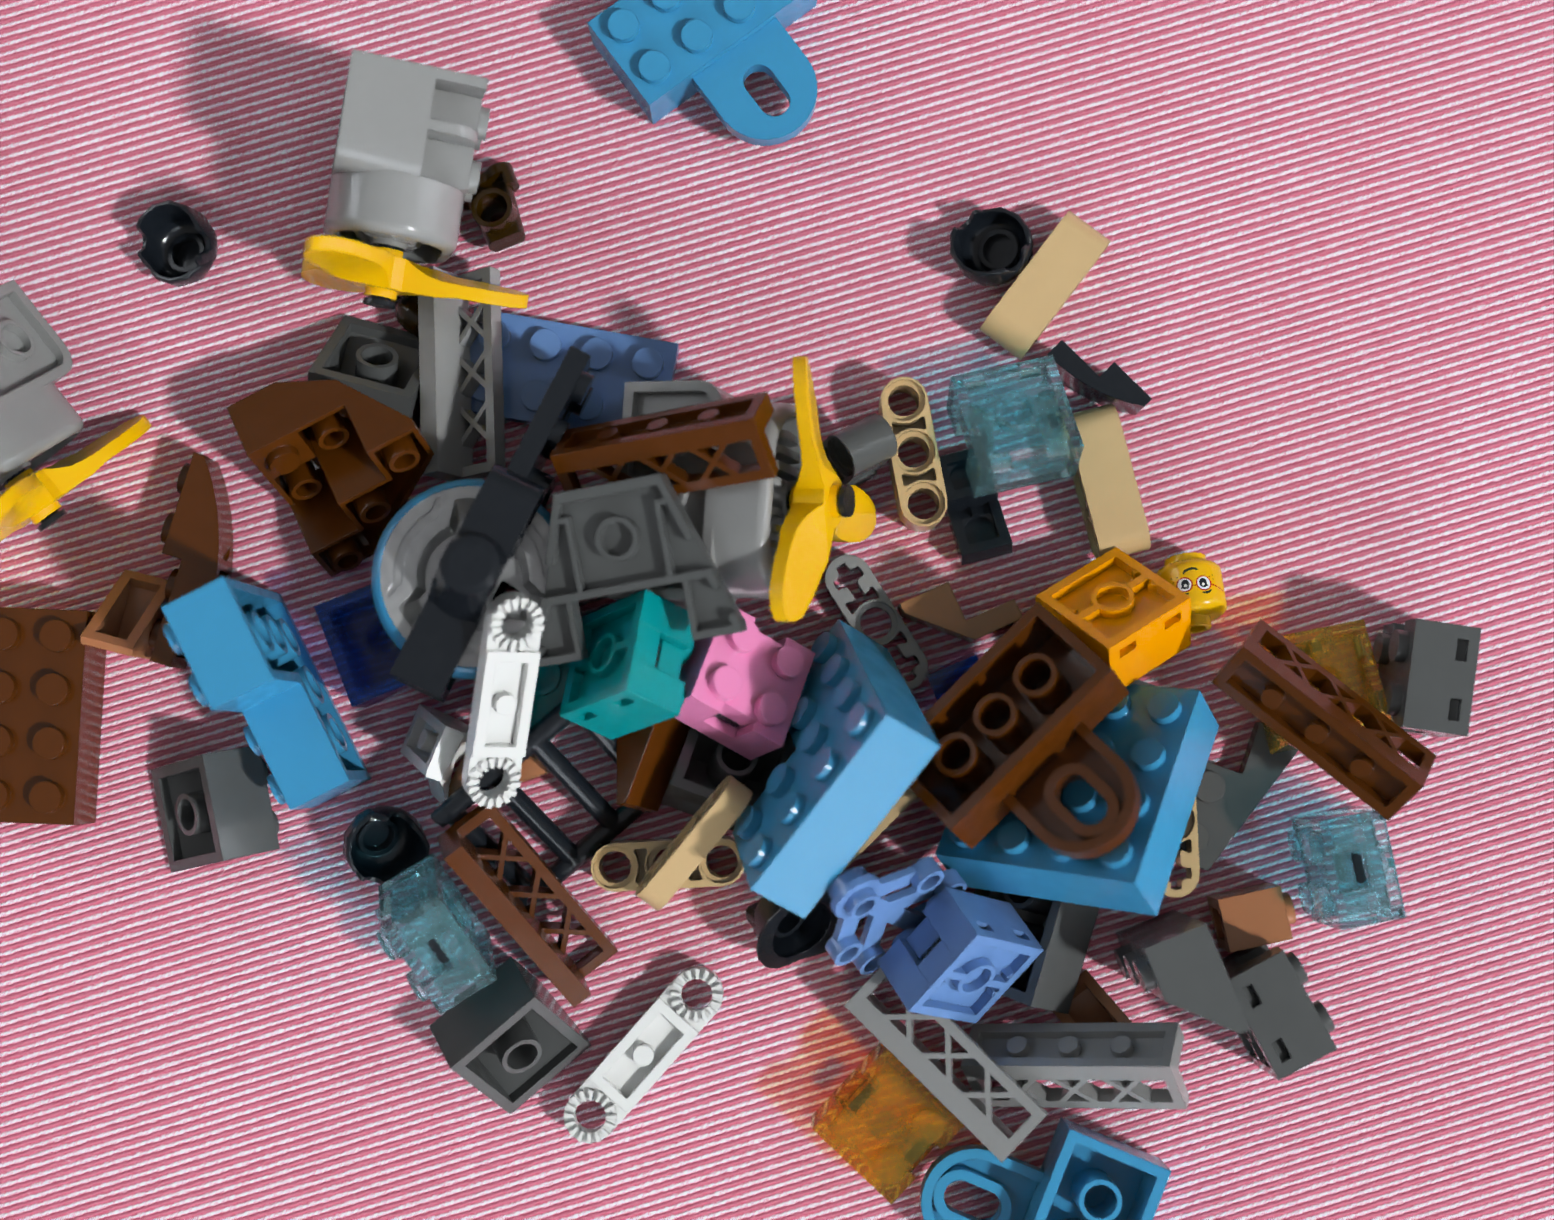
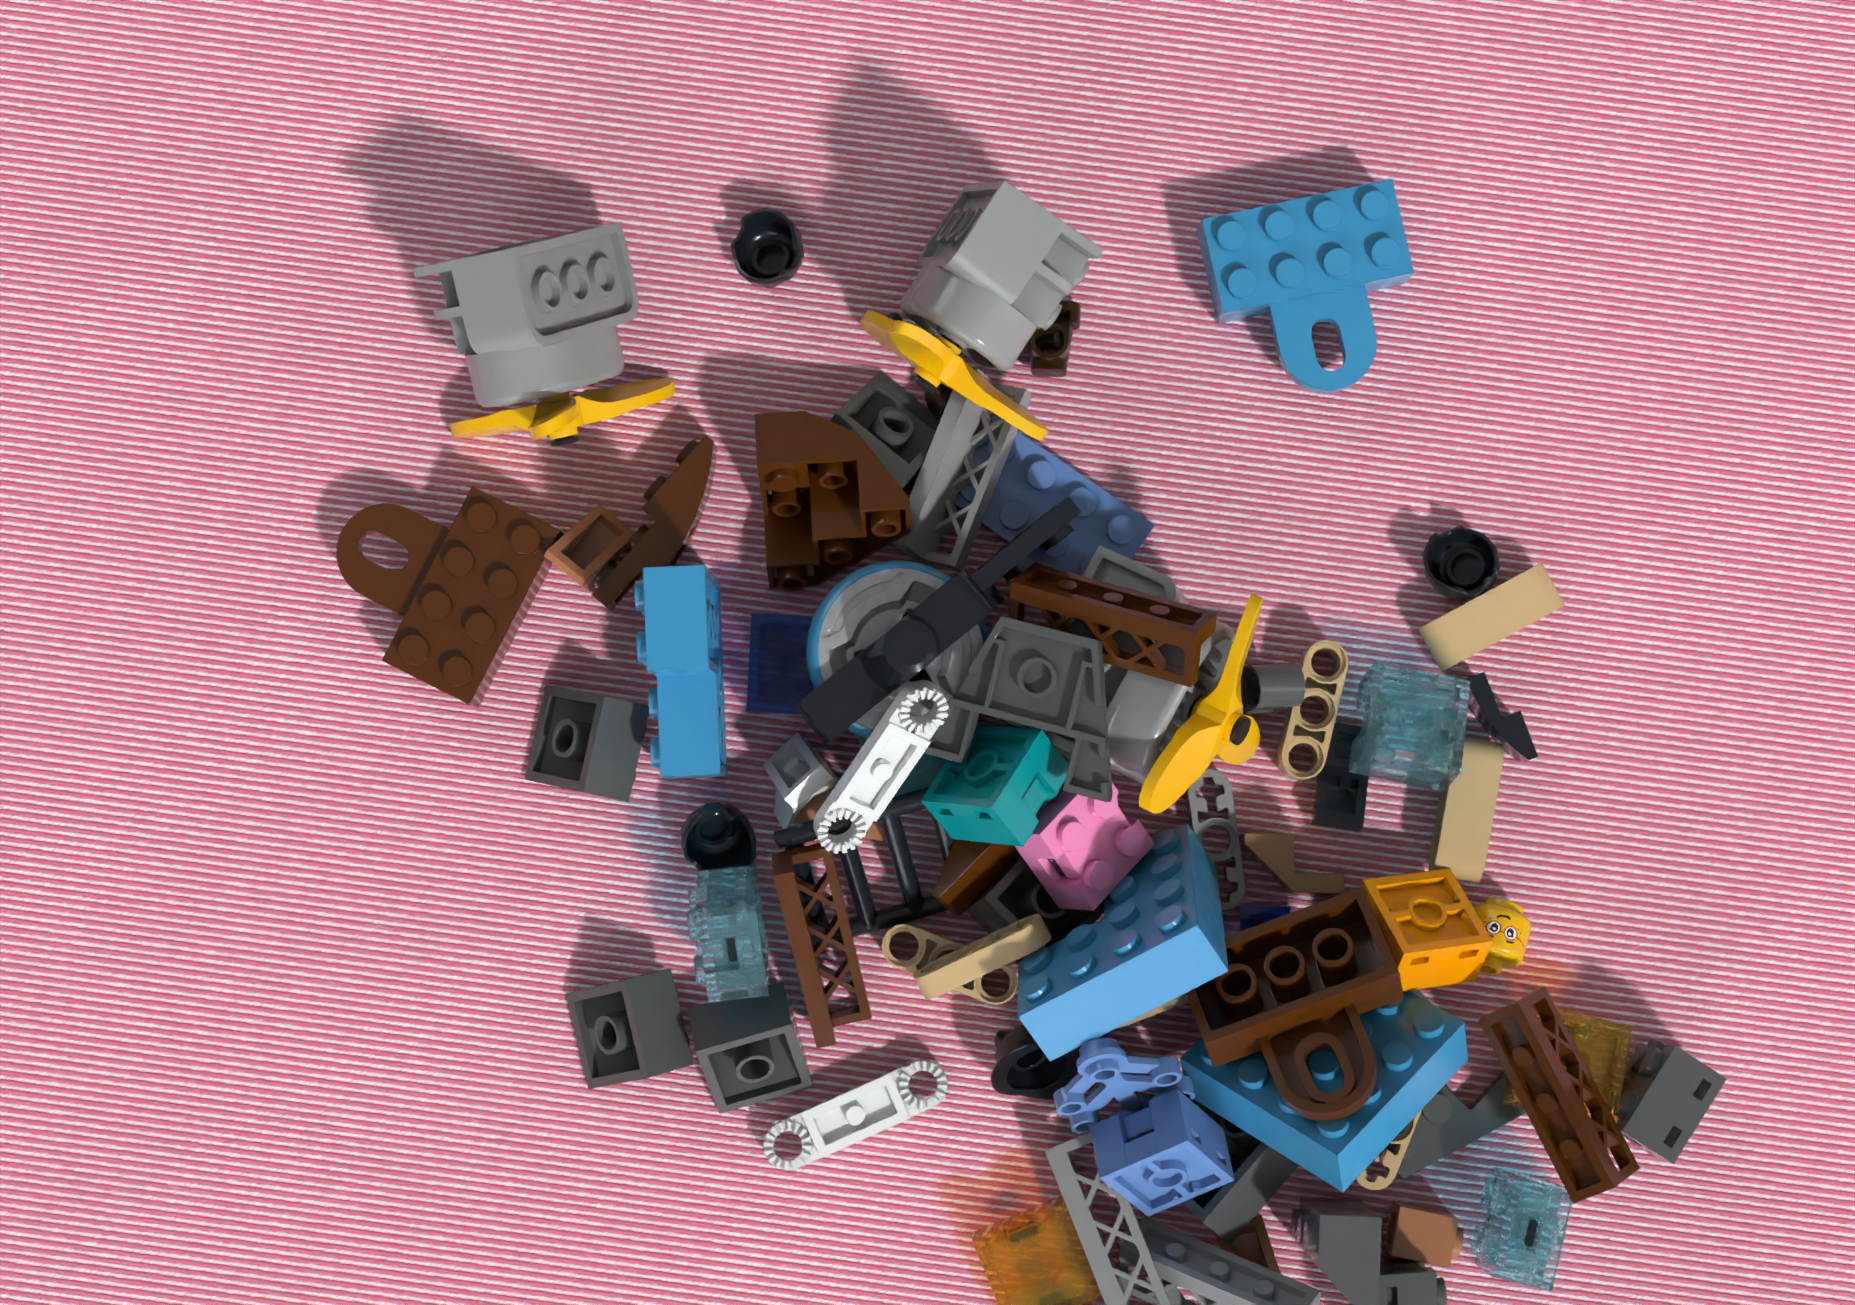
camera: 25 degrees right, 0 degrees up
(382, 1071) = (629, 1029): none -> dark grey slope

